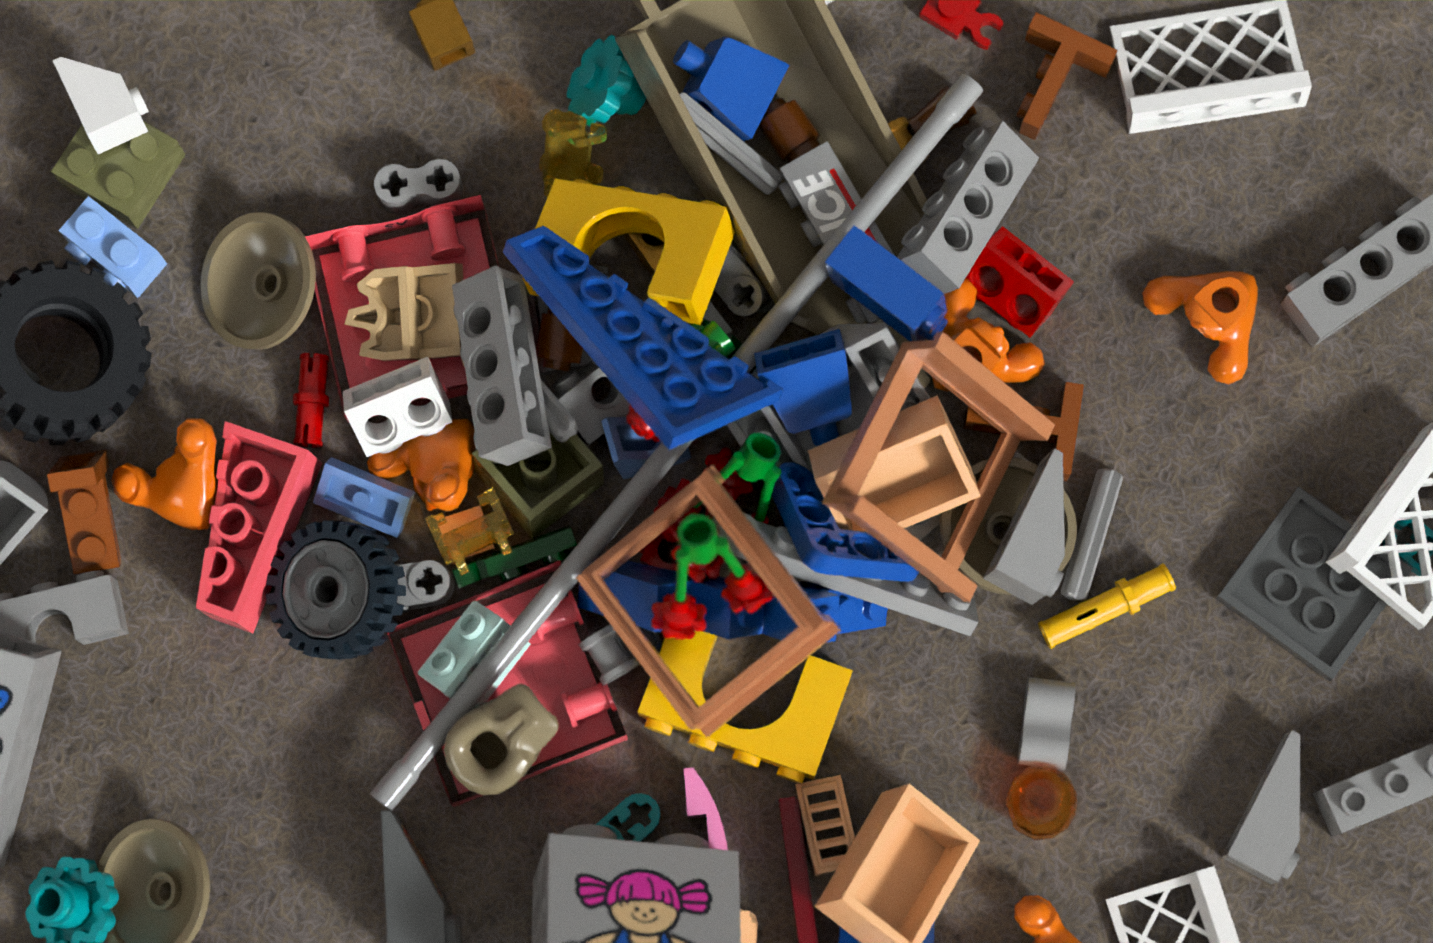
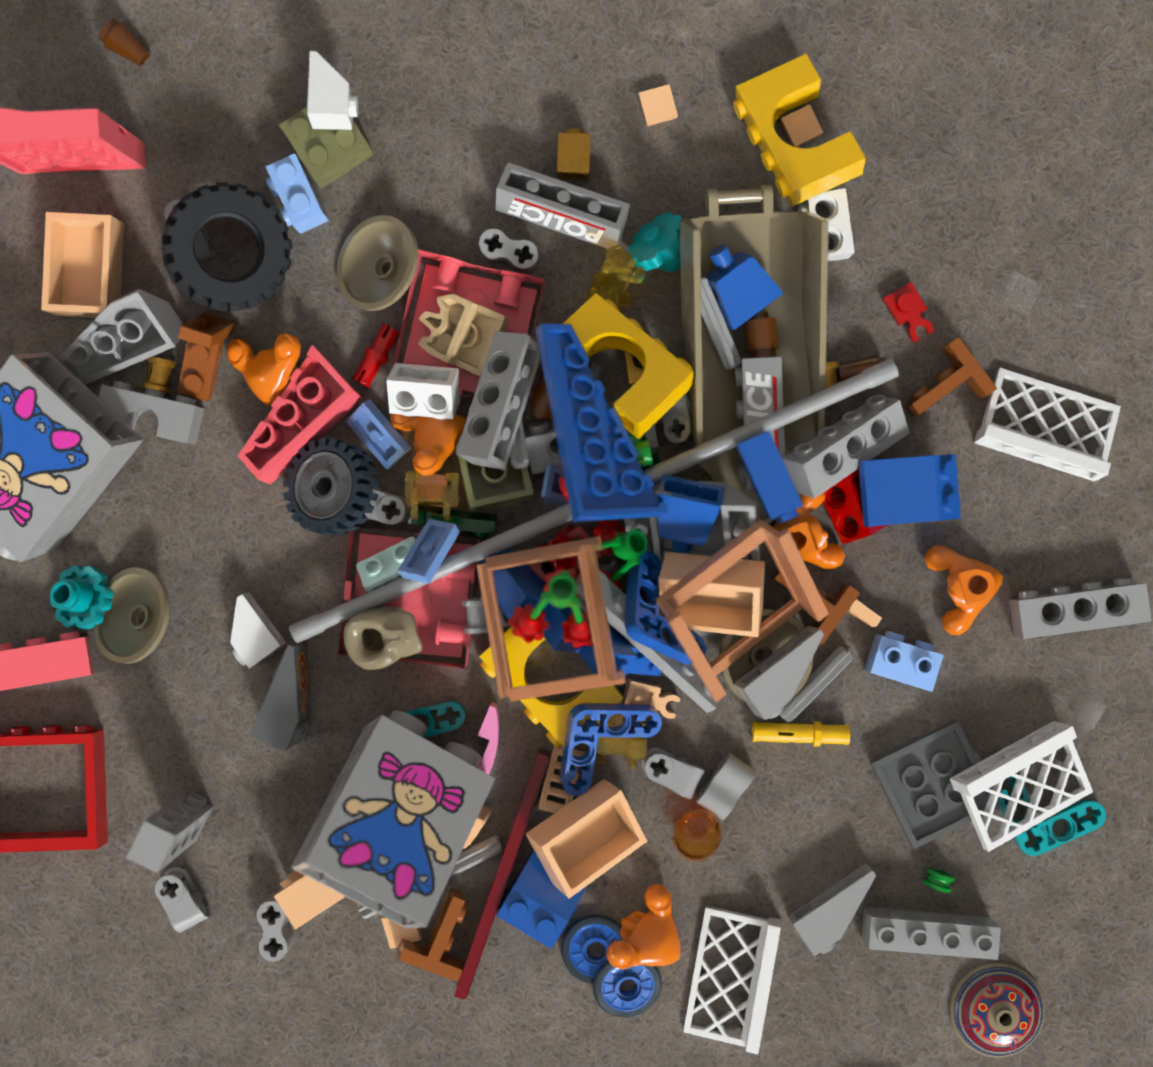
camera: 25 degrees right, 10 degrees up
(38, 561) = (158, 374): none -> pearl gold bush
(325, 838) = (253, 633): none -> white slope
(457, 99) = (561, 206): none -> light grey brick
(504, 600) = (428, 551): none -> medium blue plate
(832, 737) = (592, 731): none -> blue beam
(880, 736) = (622, 746): none -> clear yellow piece
(881, 663) = (646, 693): none -> light nougat plate
(973, 736) = (675, 773): none -> light grey piece
(1076, 225) = (909, 490): none -> blue slope
(1103, 411) = (864, 614): none -> light nougat tile
(1188, 445) = (904, 662): none -> light blue brick
(1387, 704) = (938, 879): none -> green bush

